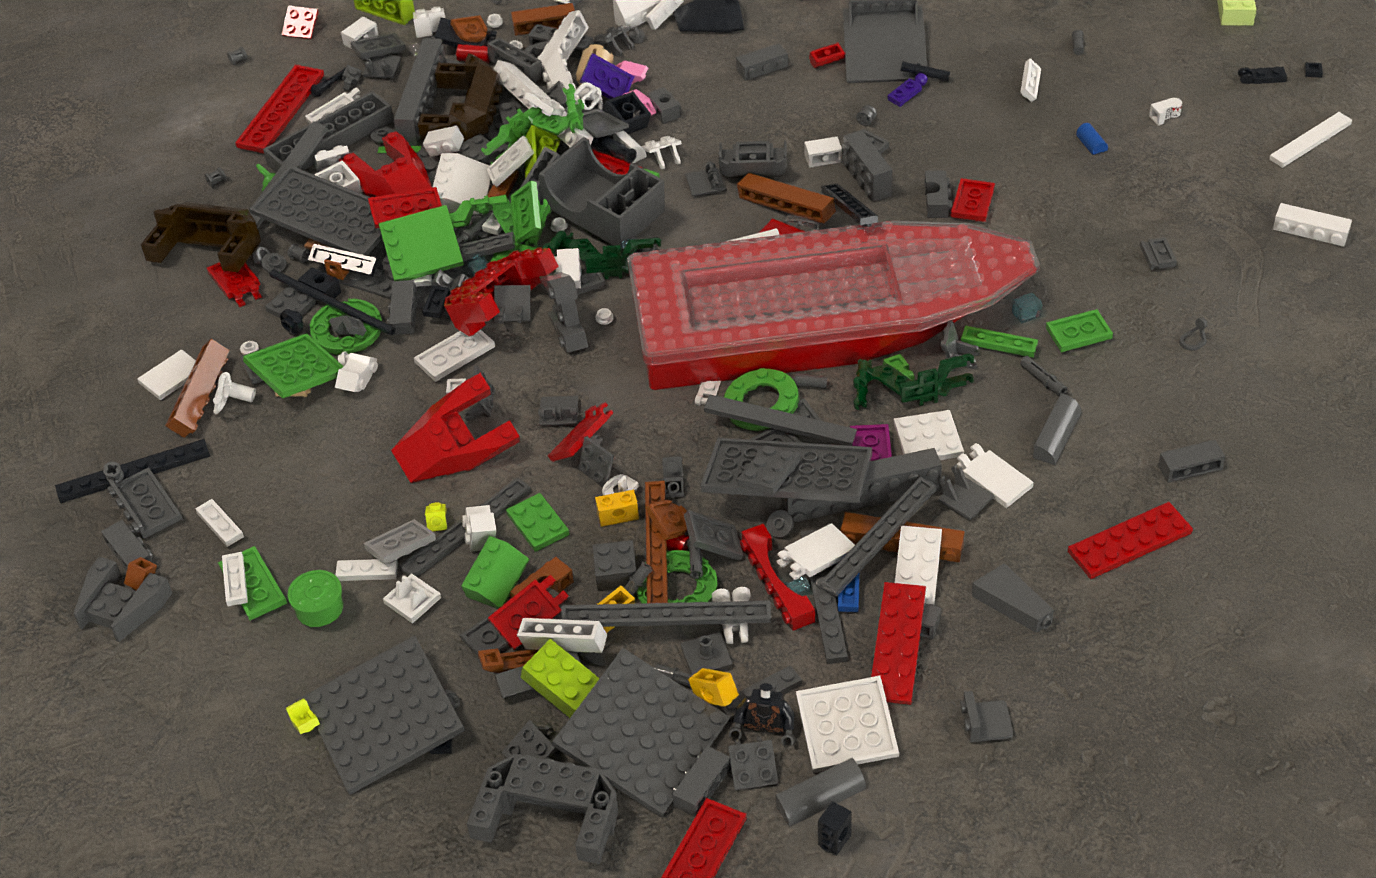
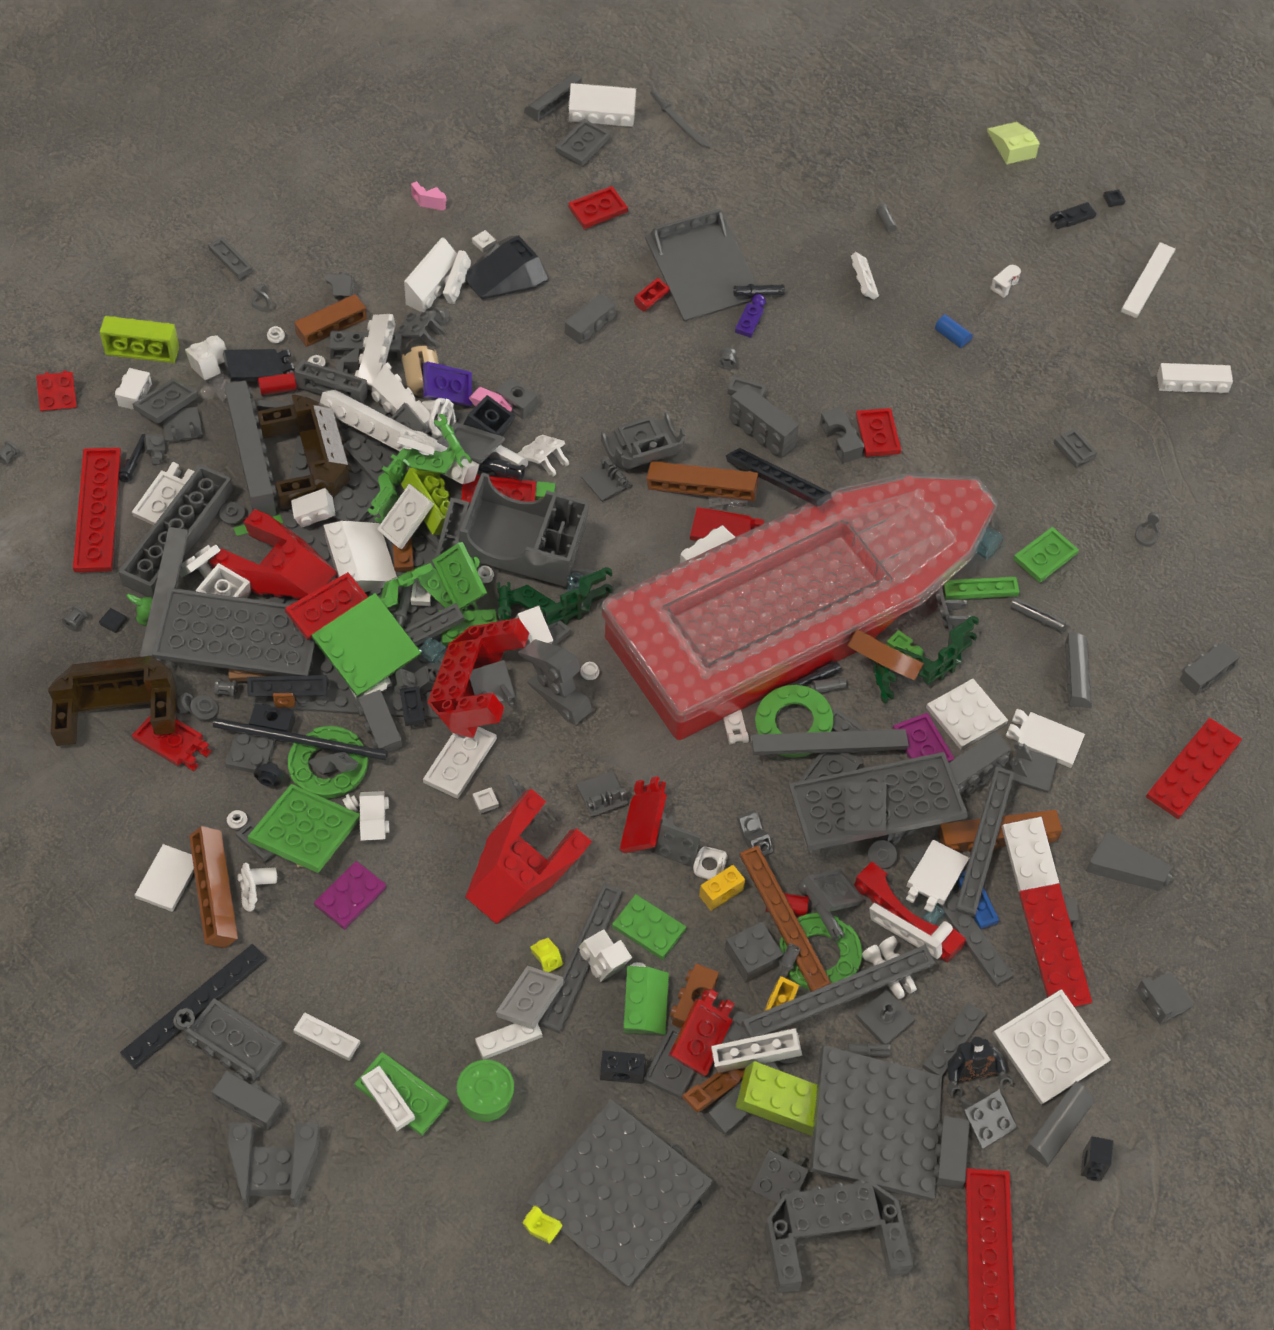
camera: 30 degrees left, 10 degrees up
(138, 571) = (282, 1126): dark orange brick -> none
(244, 186) = (113, 620): none -> black tile
(304, 427) = (350, 895): none -> magenta plate
(411, 598) = (574, 1055): white plate -> none
(445, 618) = (622, 1067): none -> black brick
(470, 28) = (261, 355): dark orange tile -> none
(634, 69) = (462, 362): bright pink slope -> none
(668, 518) = (785, 886): dark orange tile -> none
(714, 686) = (918, 1052): yellow brick -> none
(766, 592) = (909, 932): none -> white piece
(812, 369) = (820, 673): none -> black pin
(823, 152) = (707, 413): white brick -> none
(866, 362) = (885, 654): none -> dark orange slope

